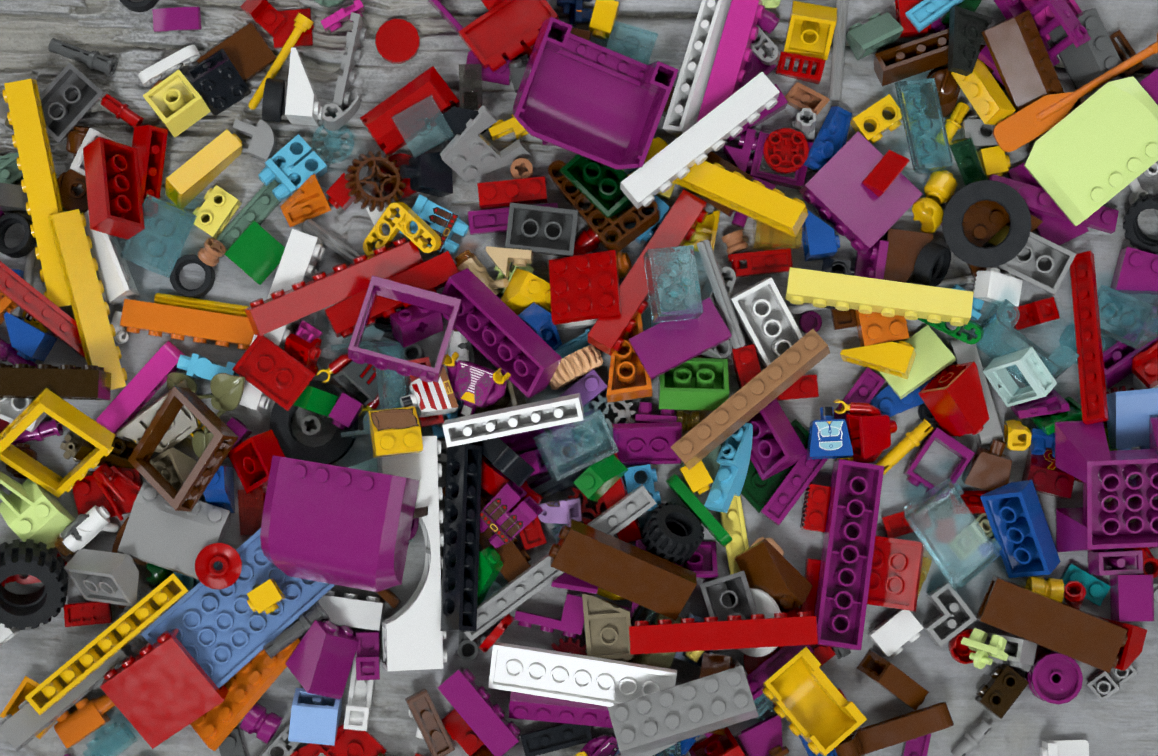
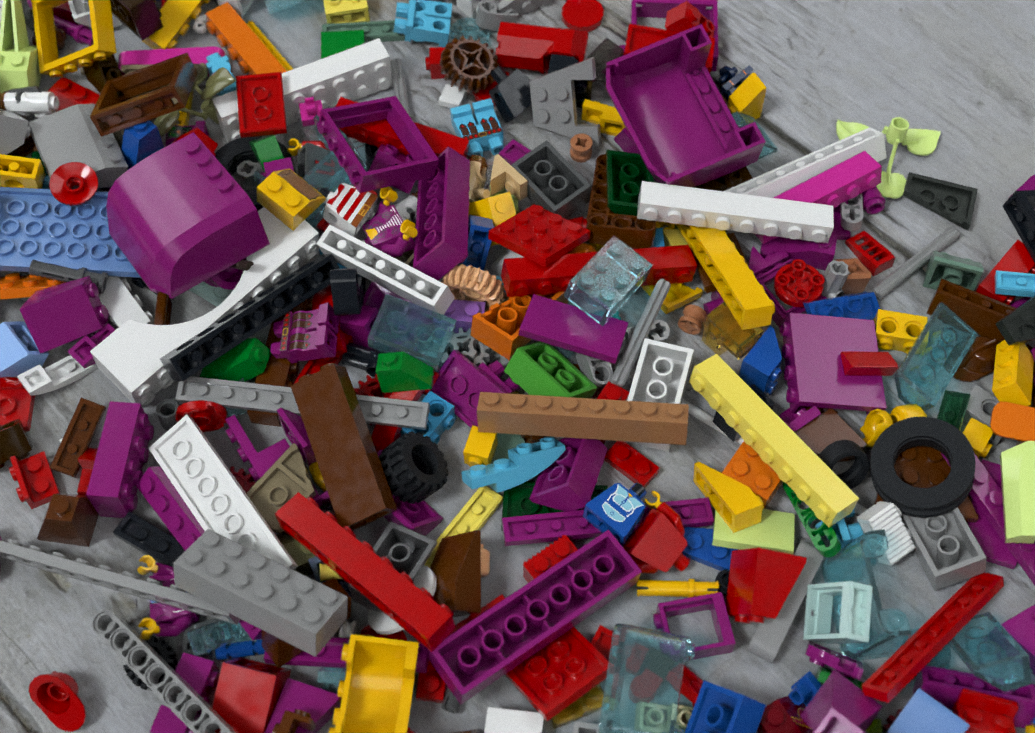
camera: 45 degrees right, 25 degrees down
(105, 478) = (82, 86): red plant -> none
(194, 293) = (286, 18): black tyre -> none
(211, 252) = (314, 23): nougat wheel -> none
(265, 597) = (78, 230): yellow brick -> none
(303, 351) = (298, 119): red bracket -> none
(305, 202) = (410, 46): orange wing -> none
(331, 287) = (341, 81): red brick -> none
(403, 224) = (454, 98): yellow beam -> none
(422, 126) = (538, 49): clear light blue tile -> none
(521, 191) = (576, 156): red brick -> none
(561, 511) = (358, 375): lavender leg -> none
(699, 509) = (454, 478): green beam -> none
(761, 262) = (702, 348): red plate -> none
(809, 321) = (696, 429): magenta tile -> none
(810, 30) = (903, 231): yellow slope -> none
(843, 319) = (724, 448): reddish brown tile -> none
(955, 120) = (968, 385): yellow axle -> none
(989, 467) = (737, 669): reddish brown torso -> none
(1016, 435) = (788, 665): yellow rock -> none
(1037, 313) = (901, 590): red slope -> none

